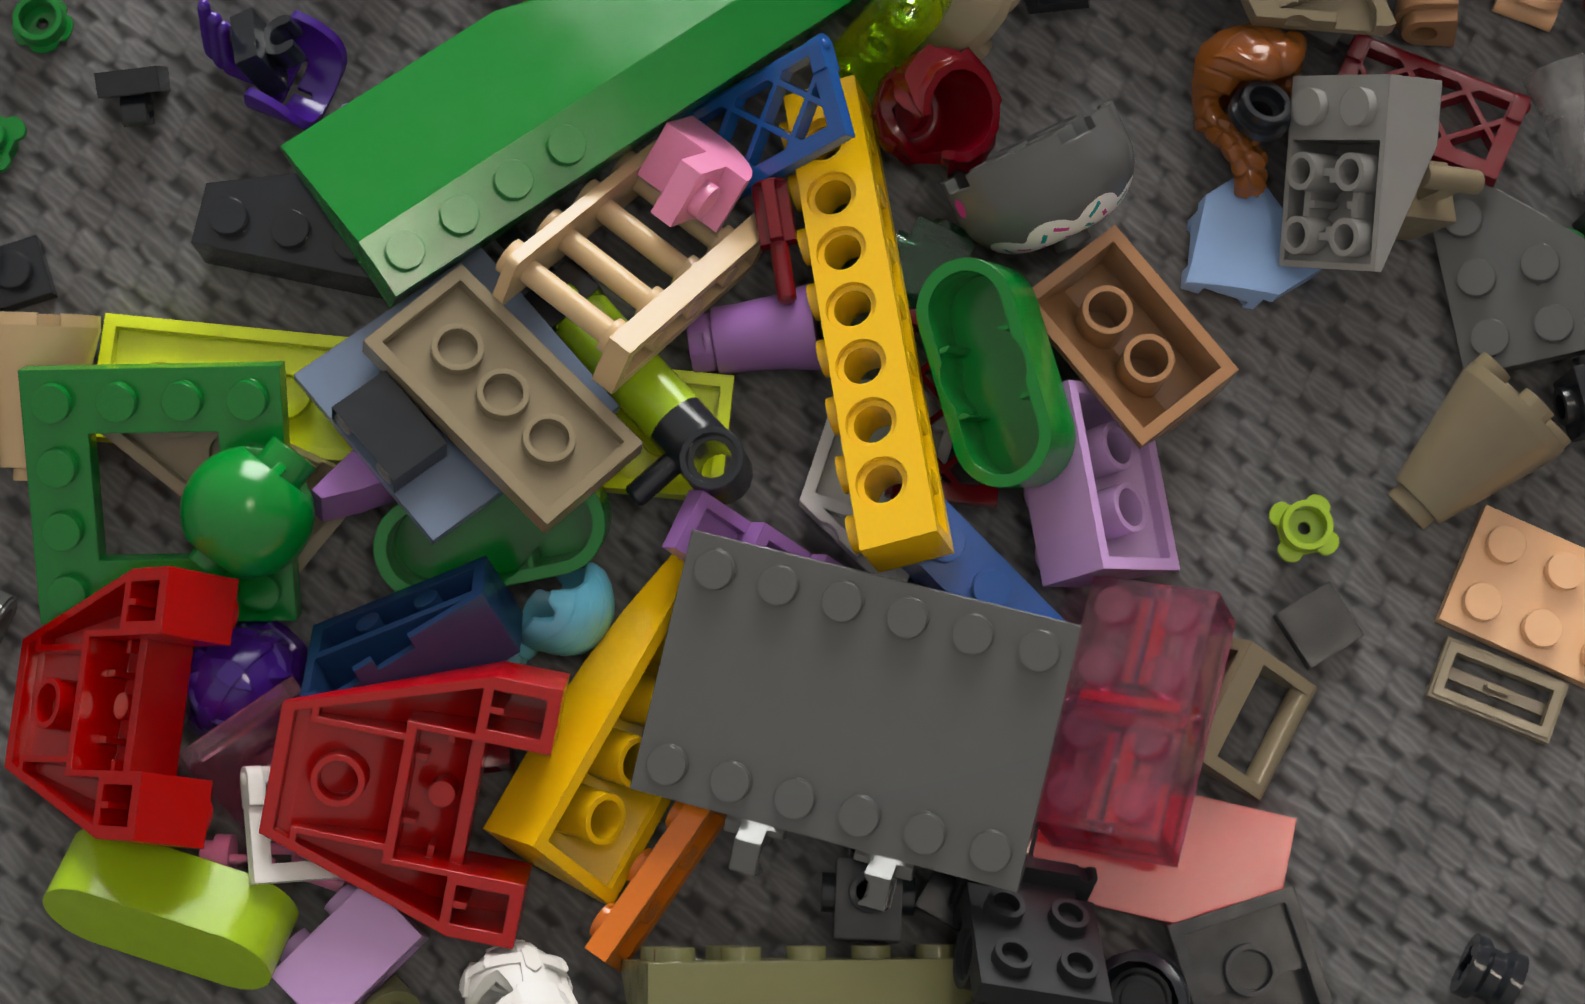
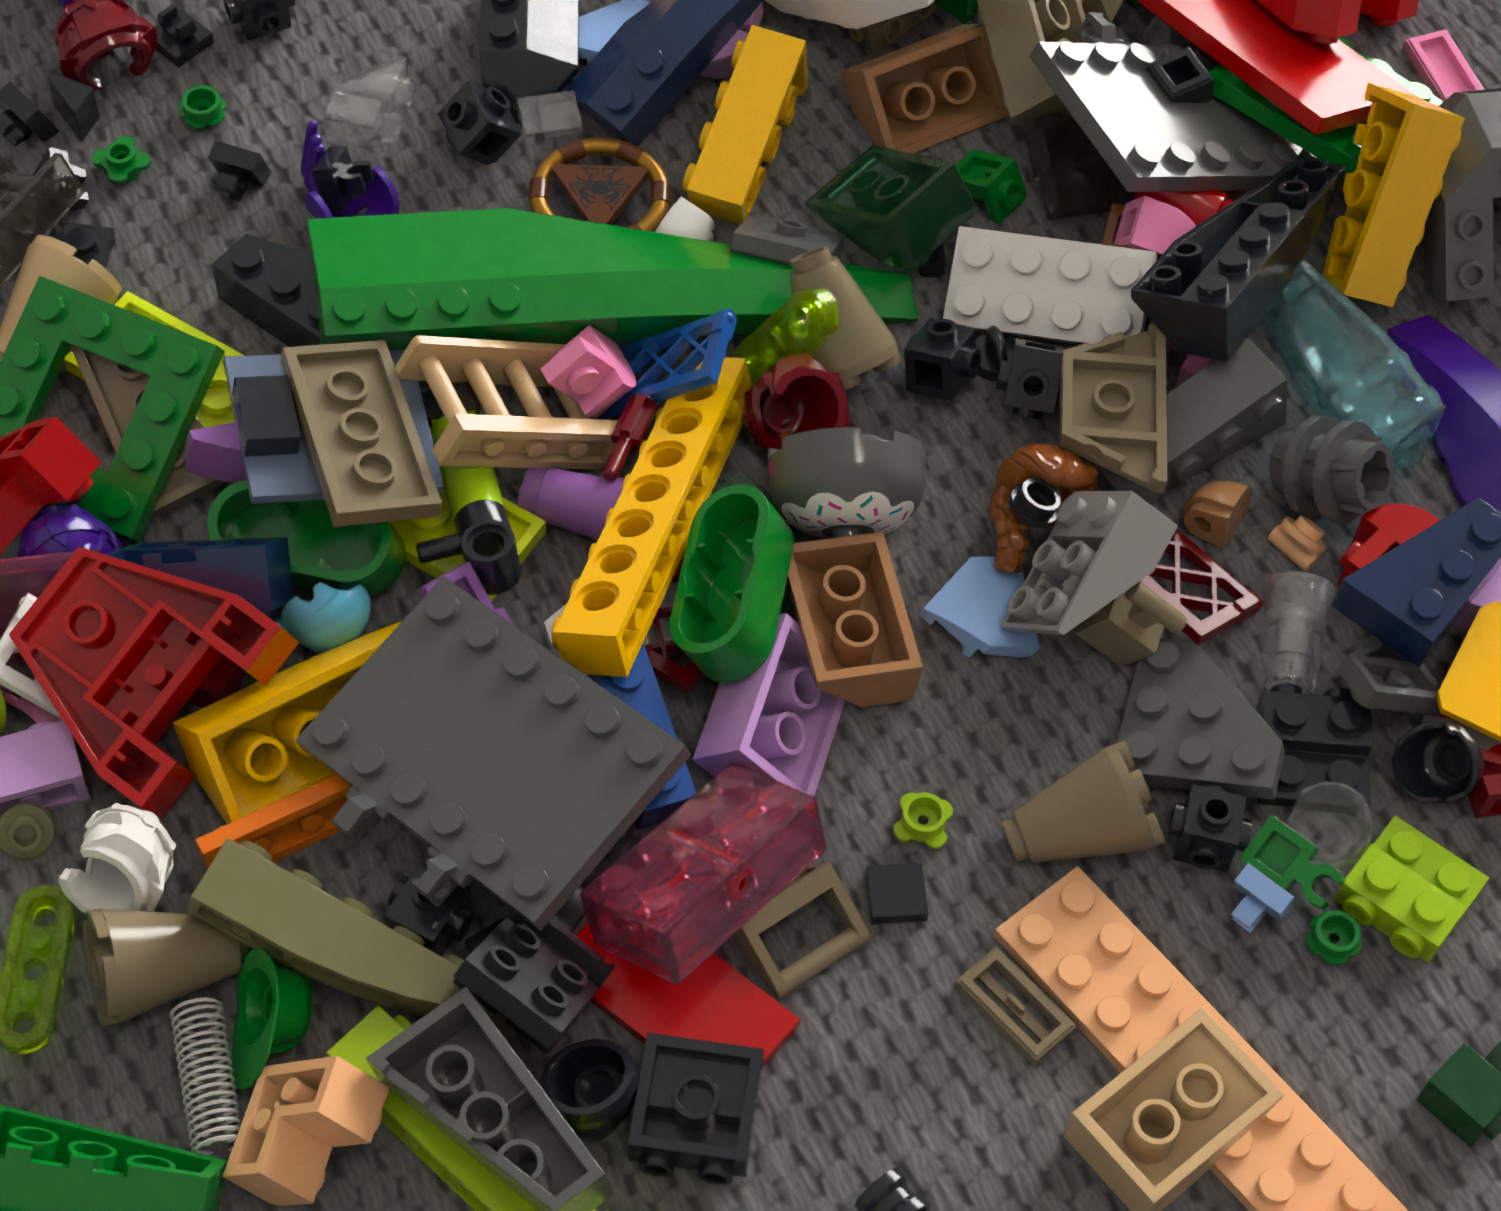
camera: 25 degrees right, 20 degrees down
(248, 510) = (138, 426): green brick -> none

